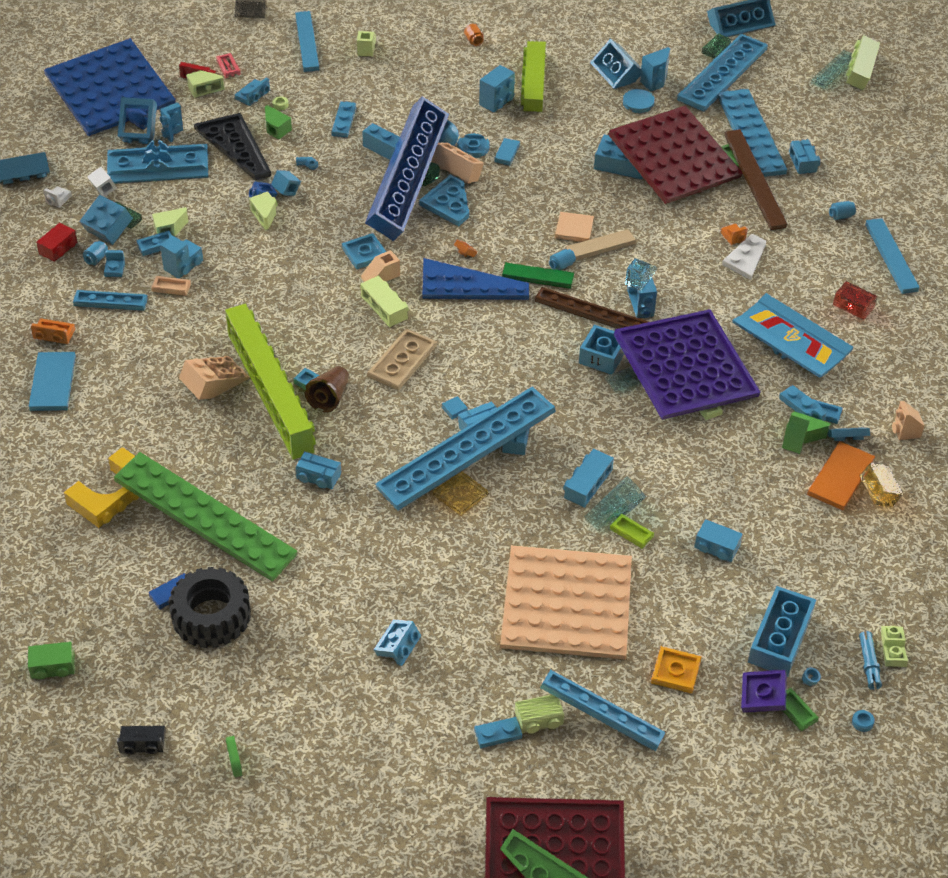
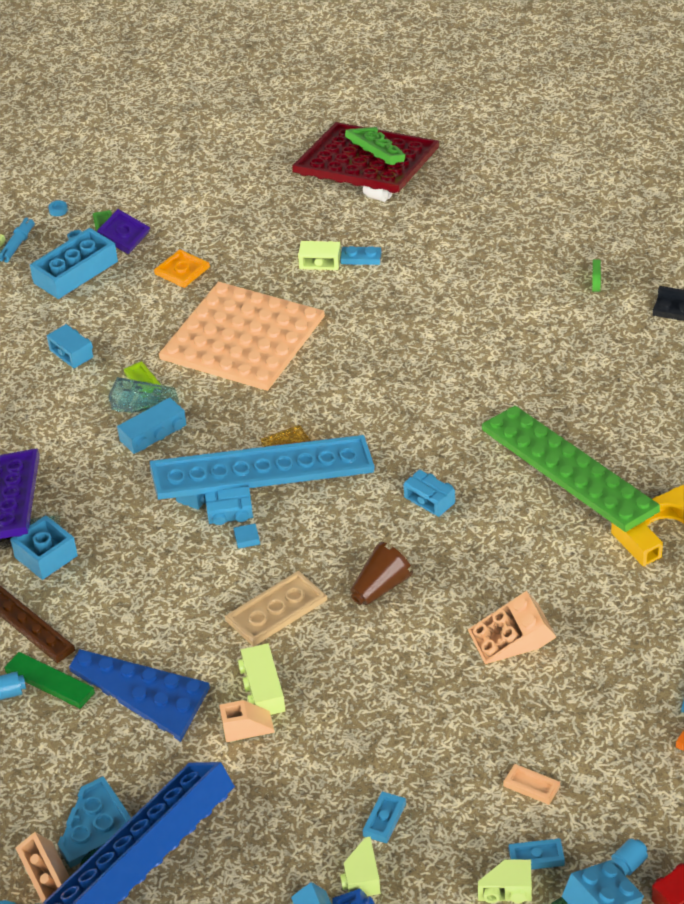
camera: 155 degrees left, 5 degrees down
(110, 300) = (621, 781): dark azure tile -> none
(114, 263) = (604, 834): dark azure bracket -> none
(161, 594) = (620, 418): blue tile -> none
(180, 256) = (510, 807): dark azure brick -> none
(210, 628) = (581, 396): black tyre -> none
(262, 242) = (384, 817): none -> dark azure plate
(270, 381) = (449, 597): lime brick -> none
(304, 377) = (401, 602): dark azure plate -> none
(363, 250) = (252, 766): dark azure plate -> none
(398, 641) = (417, 330): dark azure bracket -> none
(465, 249) = (117, 734): orange plate -> none
(602, 710) = (267, 241): dark azure tile -> none

